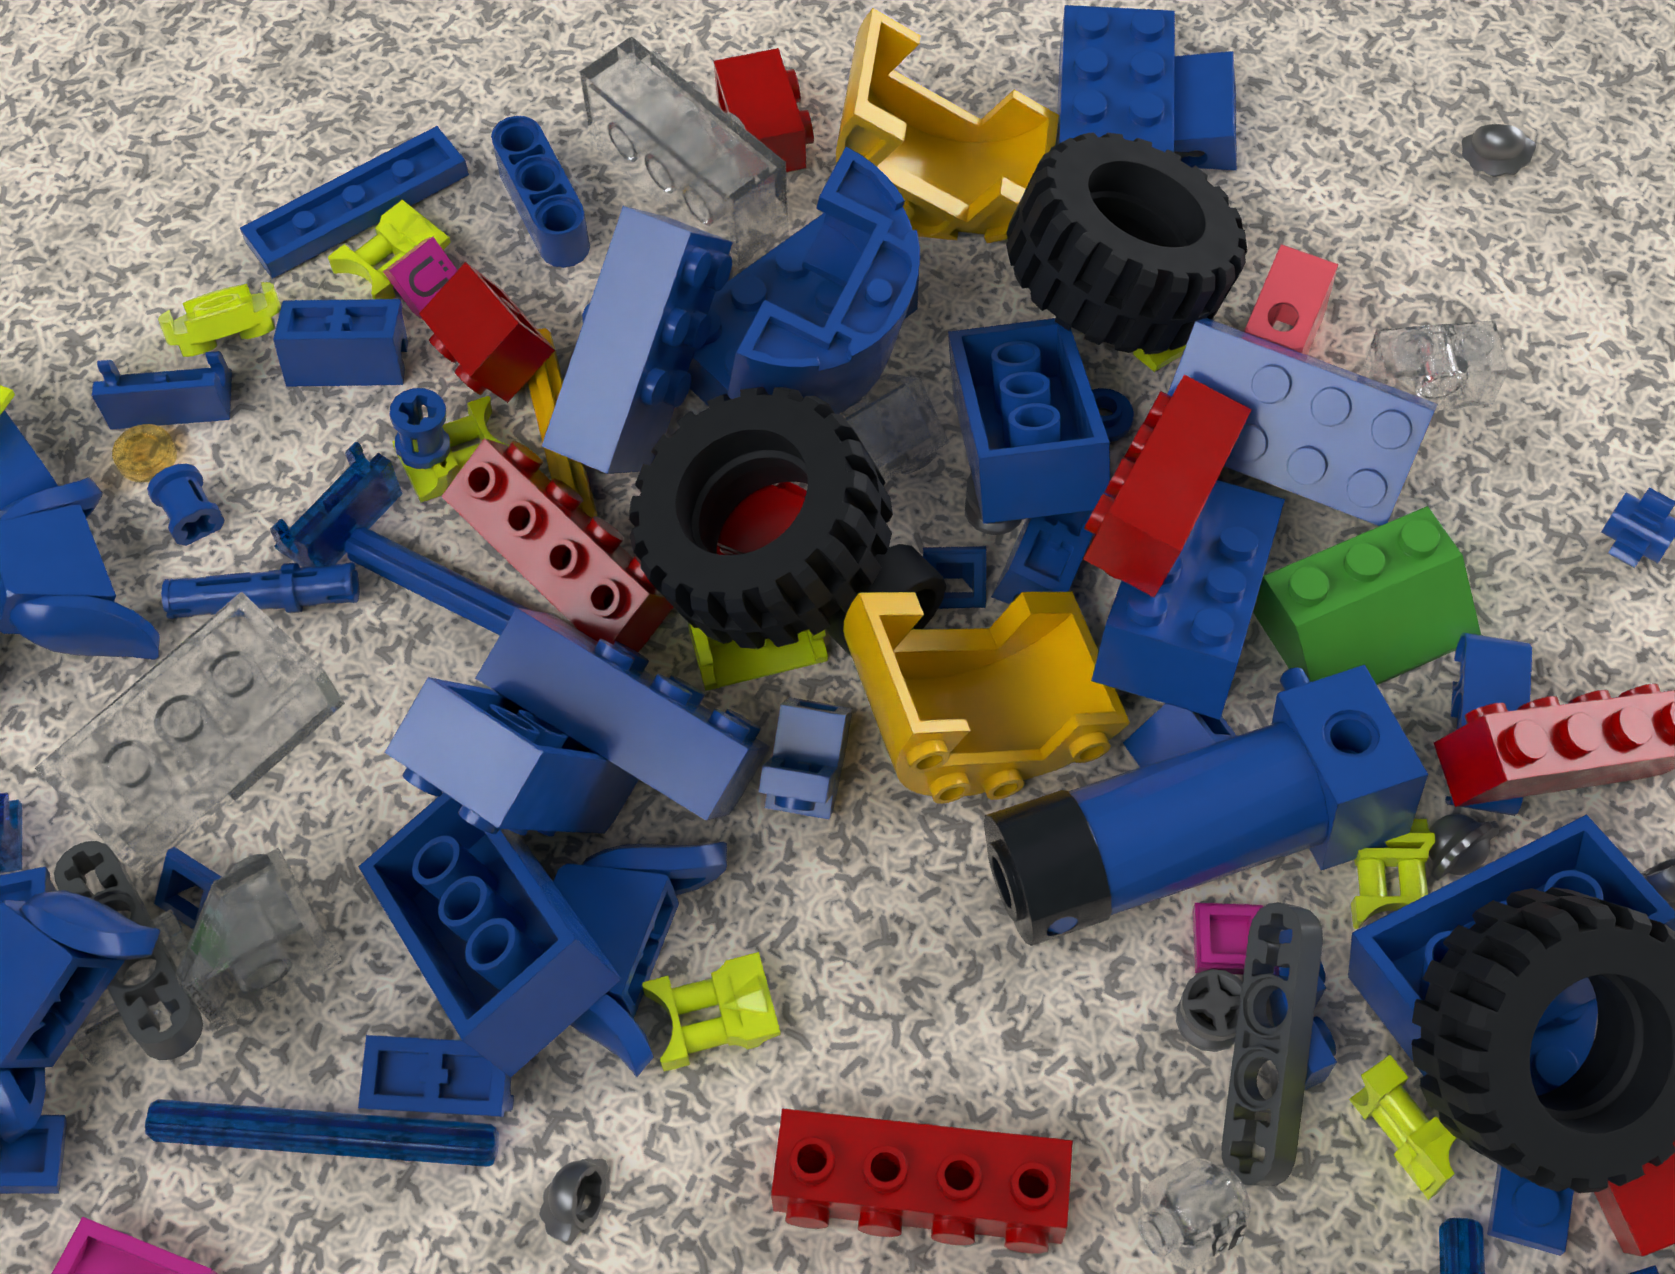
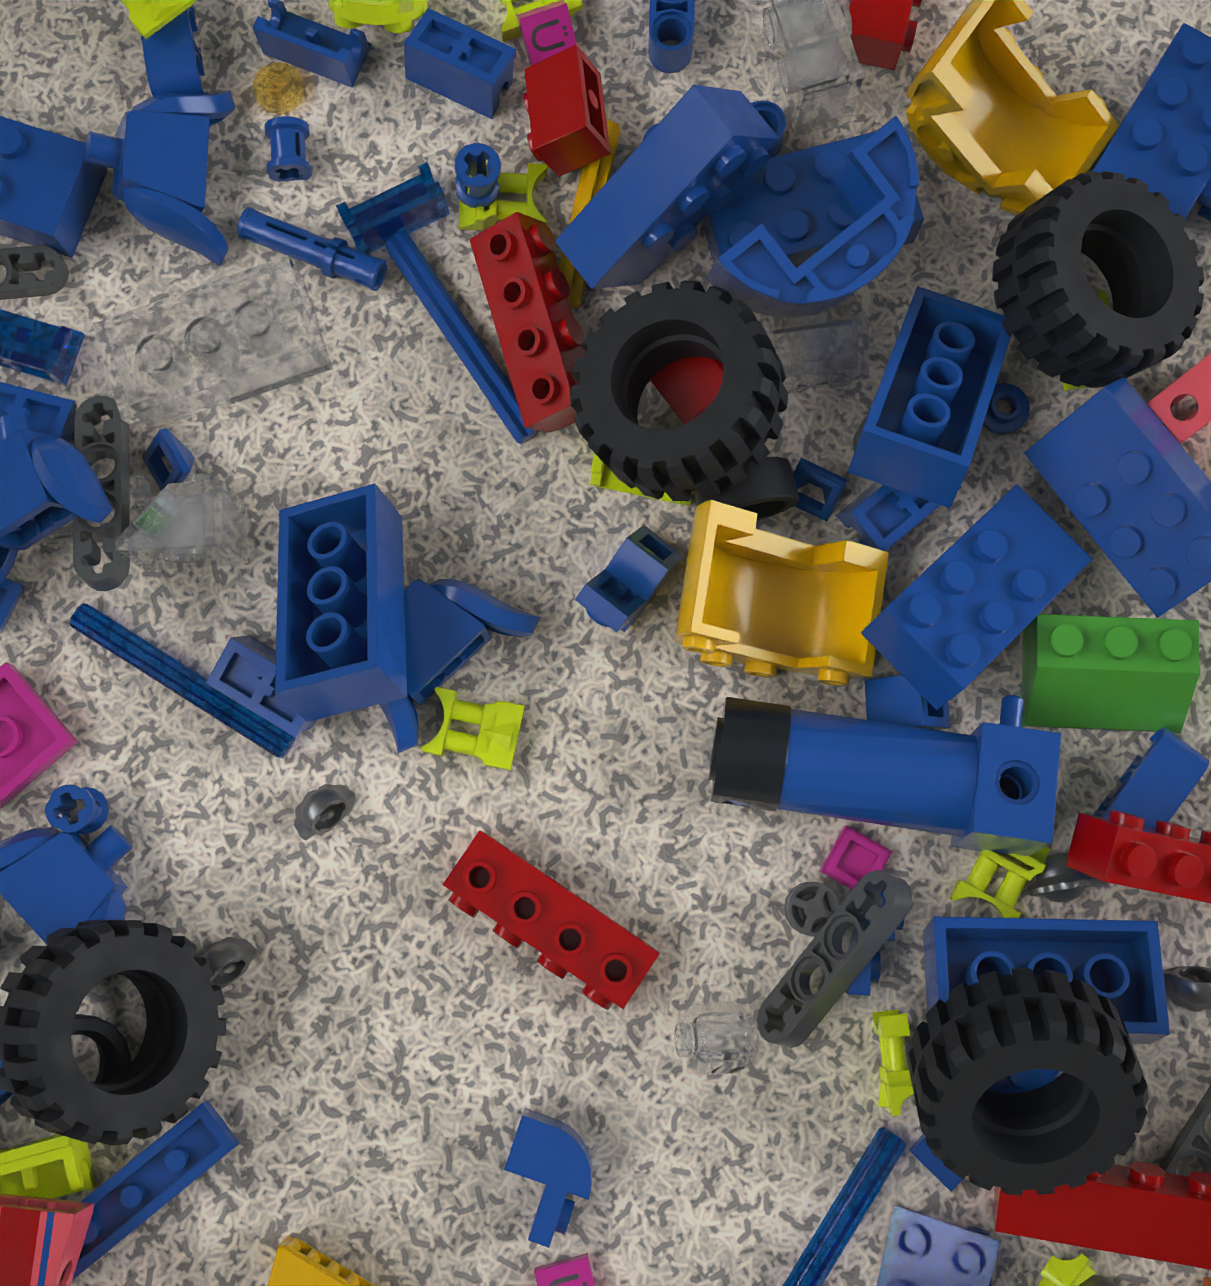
camera: 30 degrees right, 20 degrees up
(505, 764) = (409, 497): blue brick -> none
(625, 713) = (511, 489): blue brick -> none
(1163, 493) = (999, 517): red brick -> none

